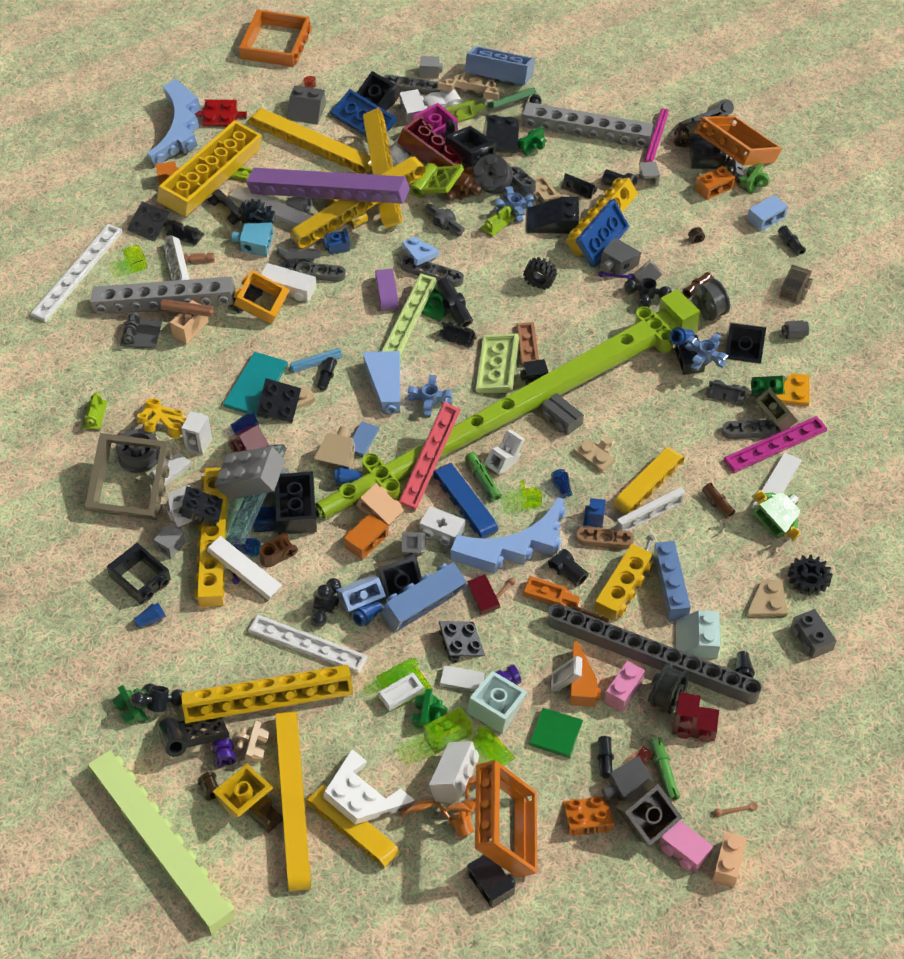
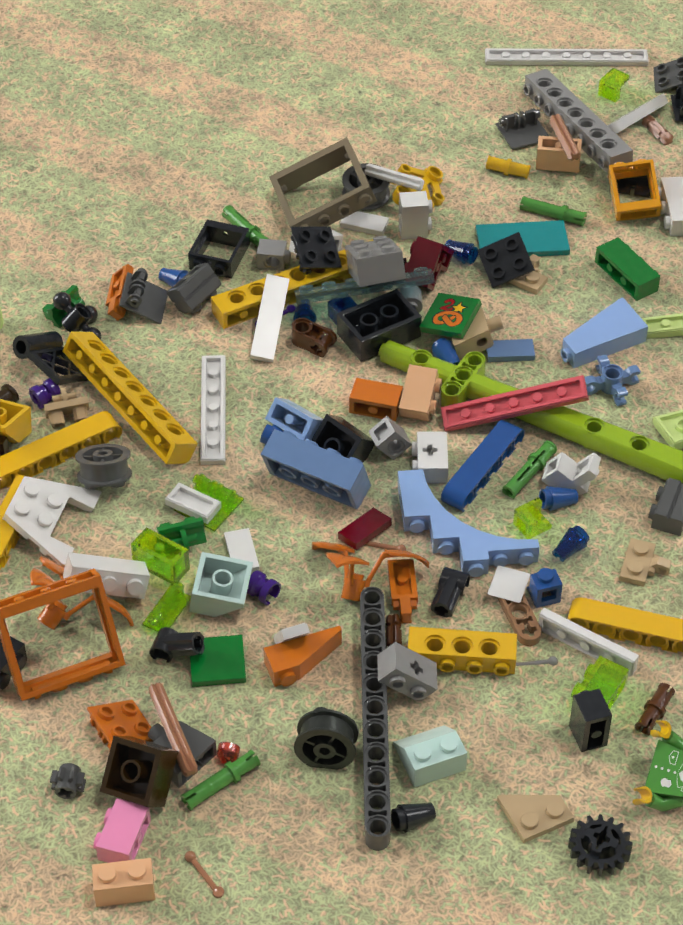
camera: 65 degrees right, 5 degrees down
(95, 412) = (388, 142): lime hinge -> none
(121, 547) = (237, 219): none -> bright green pin
(139, 659) = (115, 292): none -> orange hinge
(157, 424) = (394, 177): none -> white axle
(160, 644) = (143, 297): none -> dark grey hinge
(175, 358) = (508, 167): none -> yellow pin
(176, 605) = (194, 288): none -> dark grey brick
(246, 349) = (553, 211): none -> bright green pin
(315, 360) = (590, 272): dark azure axle -> none
(321, 454) = (450, 315): none -> green tile
(325, 601) = (268, 391): black piece -> none
(326, 373) = (577, 287): black axle -> none
(329, 337) = (627, 268): none -> green brick
(335, 735) = (103, 466): none -> dark grey wheel
(460, 639) = (290, 529): hinge -> none
(517, 472) = (557, 497): none -> blue cone
(531, 755) = (171, 643): none -> black piece
(534, 613) = (353, 581): none -> orange plant
(580, 531) = (508, 584): none -> white sticker
(605, 756) = (210, 715): black axle -> none
(619, 777) = (173, 729): none -> nougat axle
(624, 686) = (305, 695): bright pink brick -> none
(625, 866) = (67, 781): none -> dark grey gear
(635, 618) = (407, 672): none -> light grey brick
(671, 580) = (492, 695): medium blue brick -> none
(691, 520) = (605, 675): none -> clear neon green brick
(693, 720) = (298, 780): dark red brick -> none
(720, 534) = (590, 720): none -> black brick
(813, 633) = (506, 875): dark grey brick -> none

